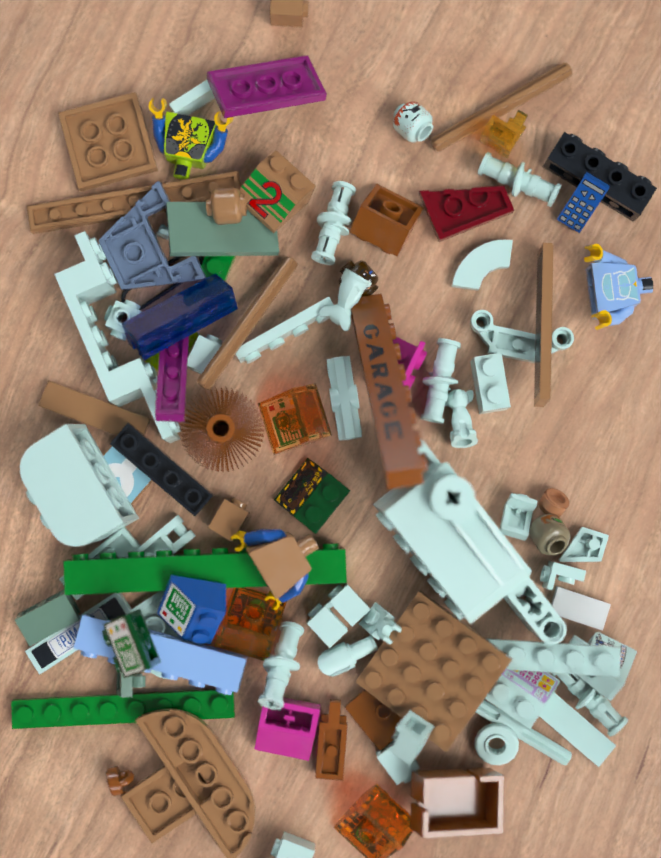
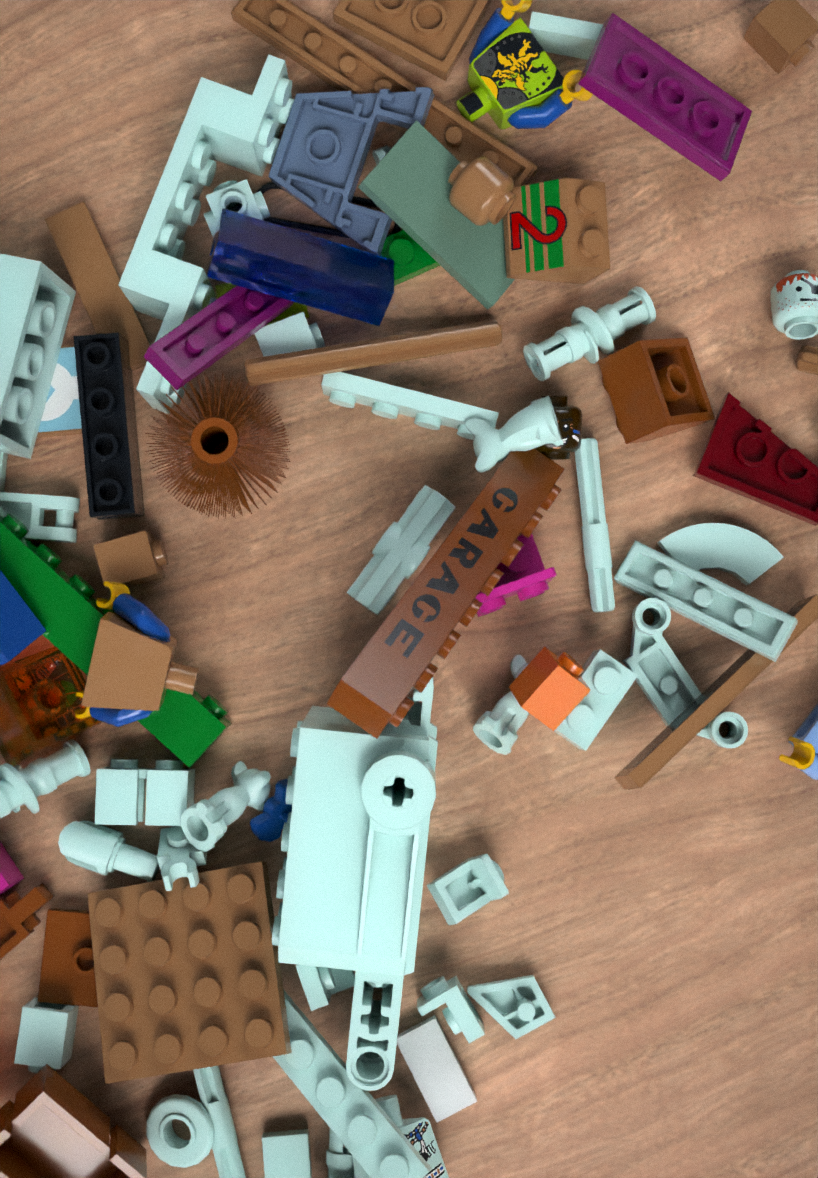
camera: 45 degrees right, 0 degrees up
(294, 418) = (321, 517): clear orange slope -> none
(312, 495) = (251, 627): slope -> none
(378, 596) = (208, 819): none -> light aqua animal
(402, 565) = (275, 812): none -> blue piece
(410, 737) = (80, 1024): light aqua brick -> none
(417, 305) = (594, 527): none -> light aqua axle
(440, 380) = (529, 639): light aqua piece -> none
(469, 394) = (550, 687): none -> orange brick
(495, 616) = (322, 982): none -> light aqua bracket
(498, 291) = (706, 601): none -> light aqua tile
(523, 694) = (263, 1107): light aqua slope -> none
(549, 534) = (484, 947): dark tan head -> none
(553, 502) = (527, 914): nougat tile -> none

